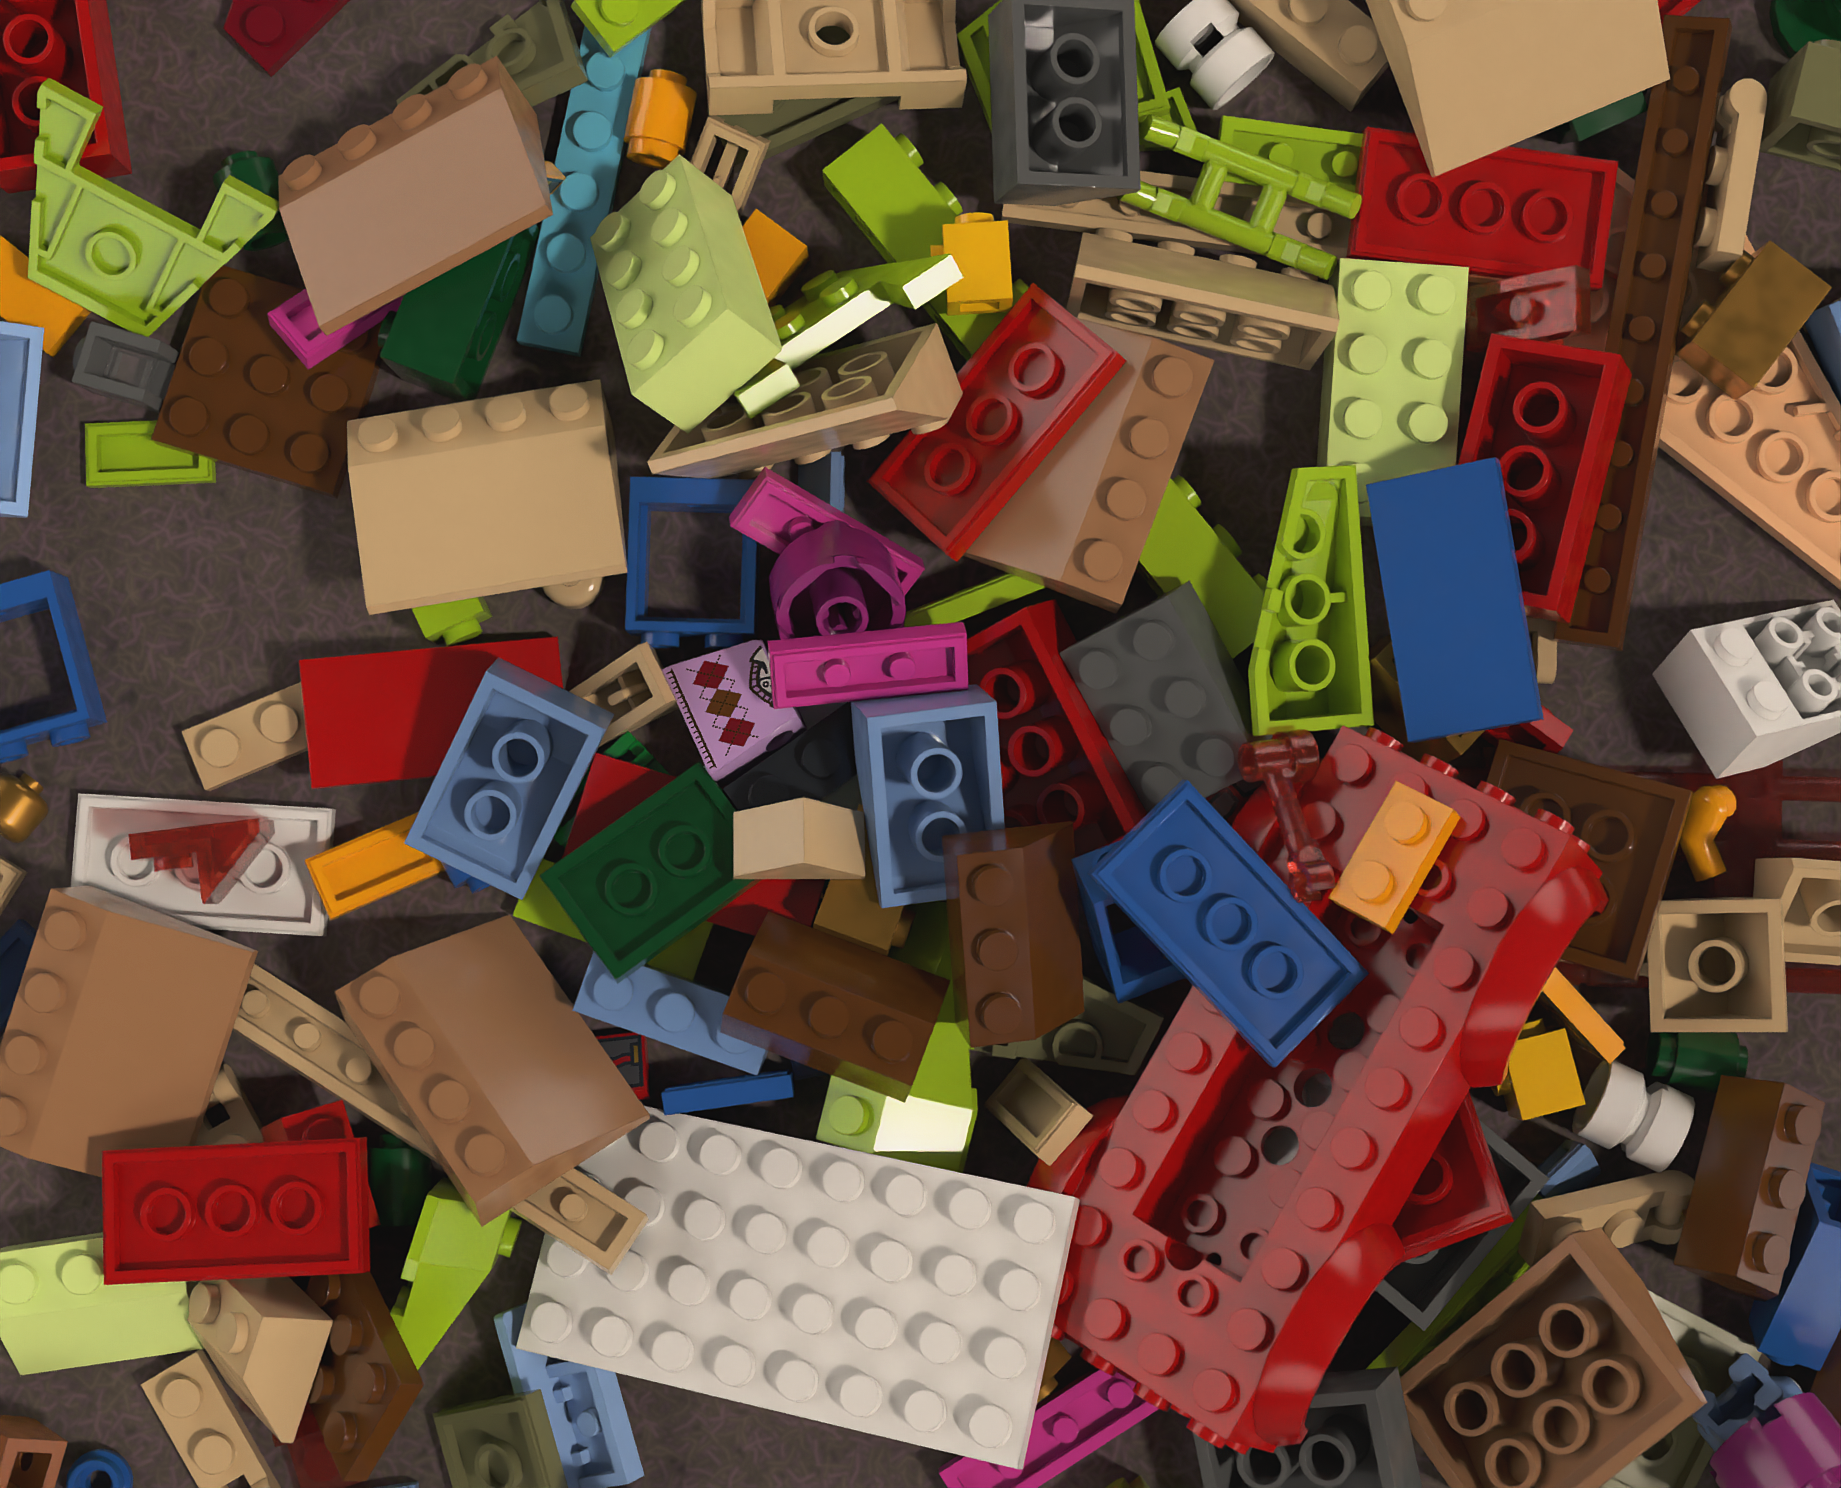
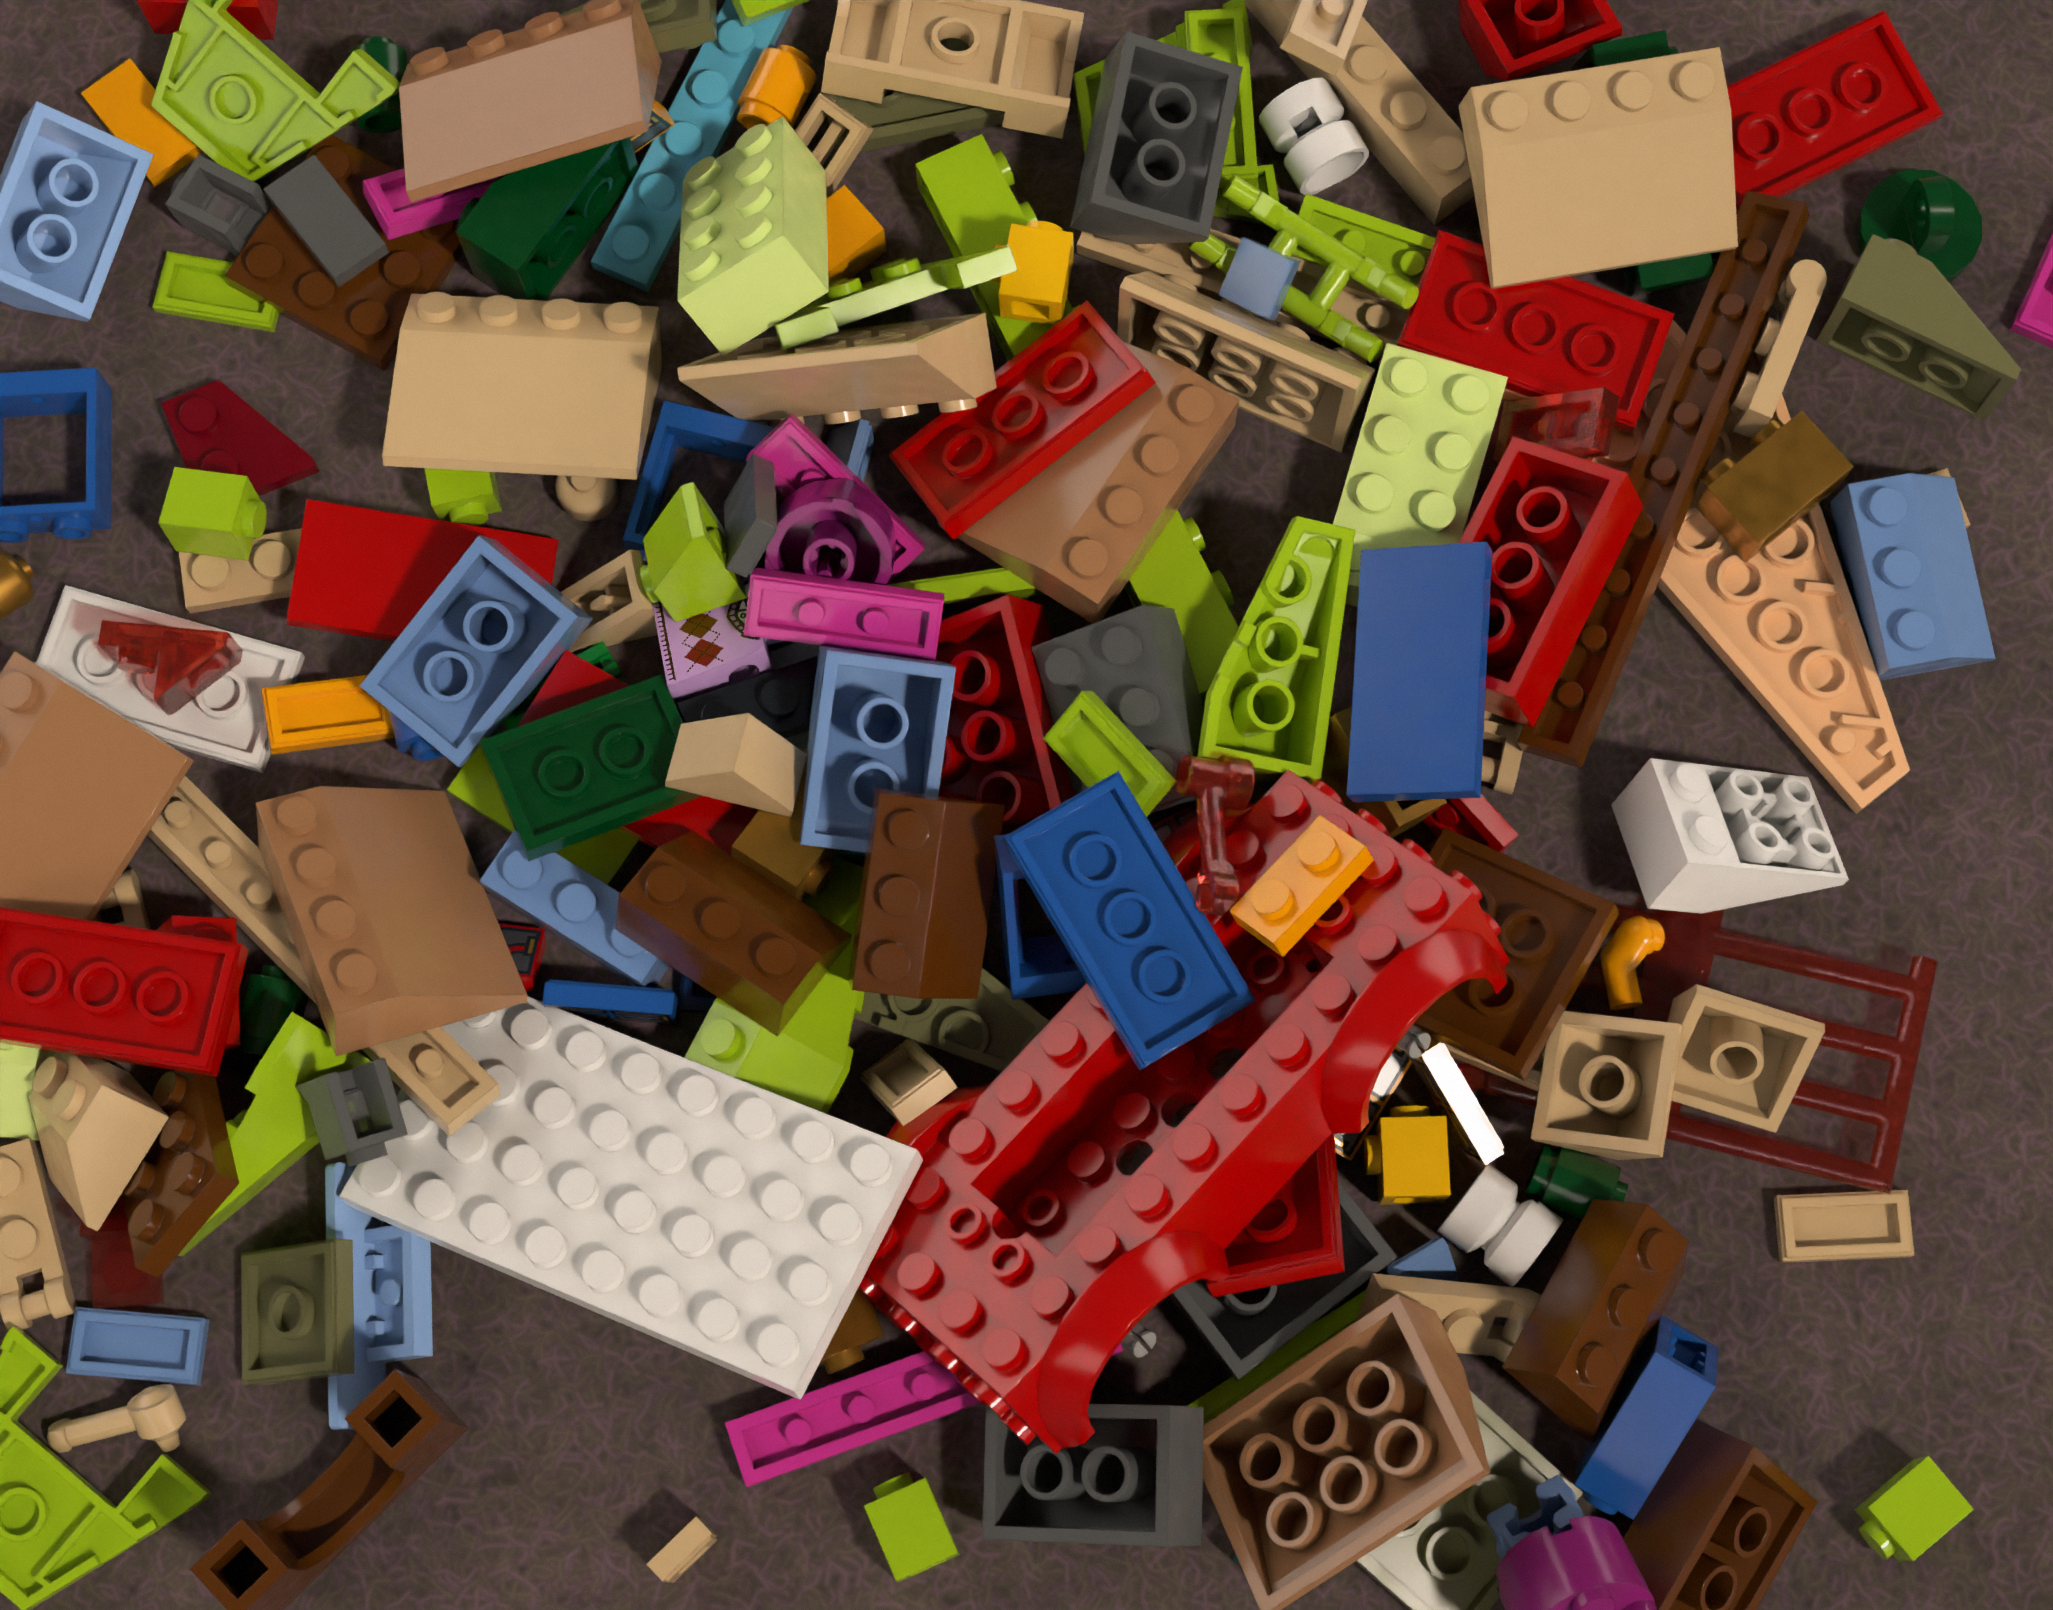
camera: 15 degrees right, 10 degrees down
(205, 614) = (229, 436): none -> dark red wing
(208, 695) = (212, 514): none -> lime brick
(240, 361) = (326, 220): none -> dark grey tile
(513, 1273) = (355, 1112): none -> dark grey window
(703, 645) = (688, 559): none -> lime slope
(752, 589) = (750, 516): none -> dark grey tile
(1164, 751) = (1099, 745): none -> lime tile
(1198, 218) = (1259, 278): none -> medium blue slope

